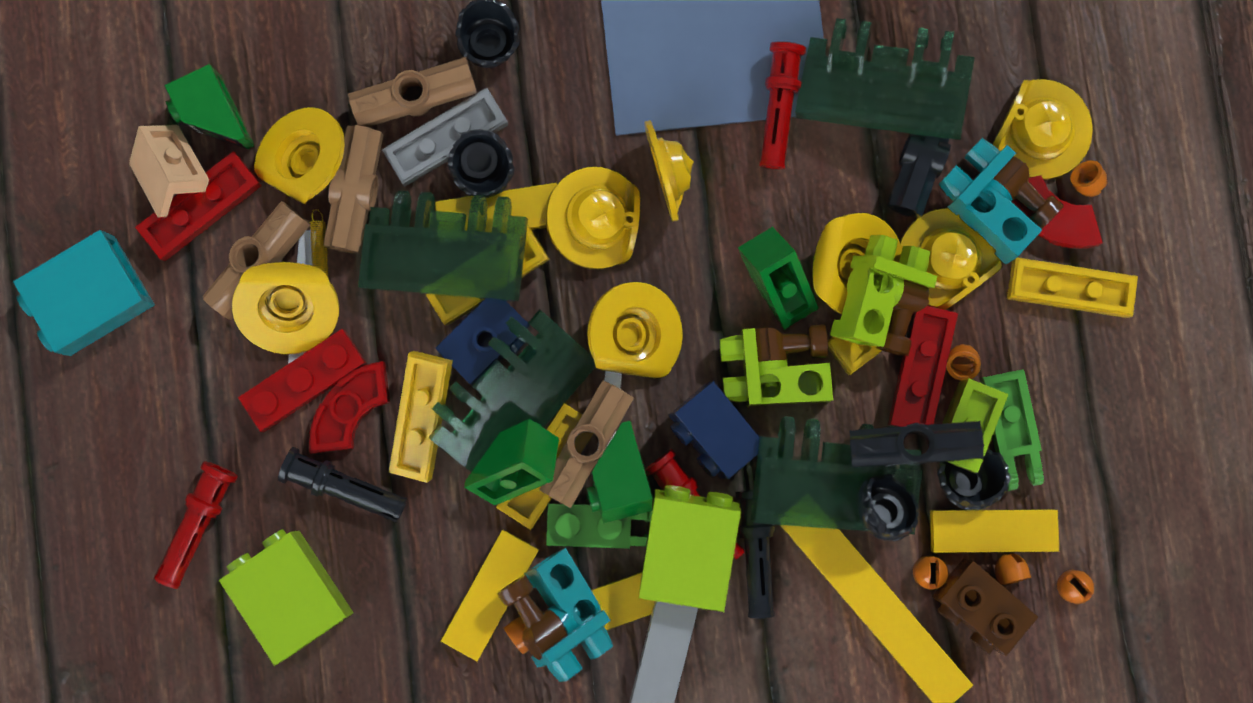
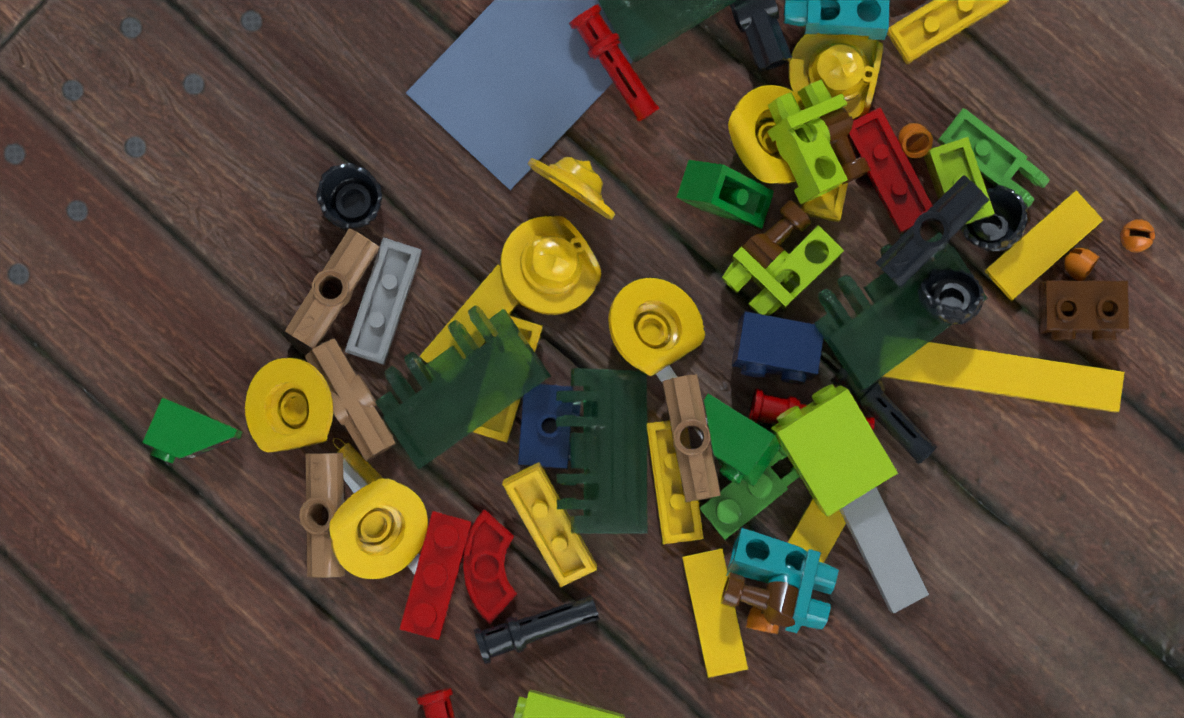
camera: 35 degrees left, 0 degrees up
(82, 294) = (214, 653): teal brick -> none
(165, 166) = (194, 503): light nougat panel -> none
(195, 212) = (243, 512): red plate -> none
(481, 163) = (430, 298): black hair -> none
(515, 463) = (651, 498): green slope -> none
(922, 572) = (1017, 321): orange hinge -> none

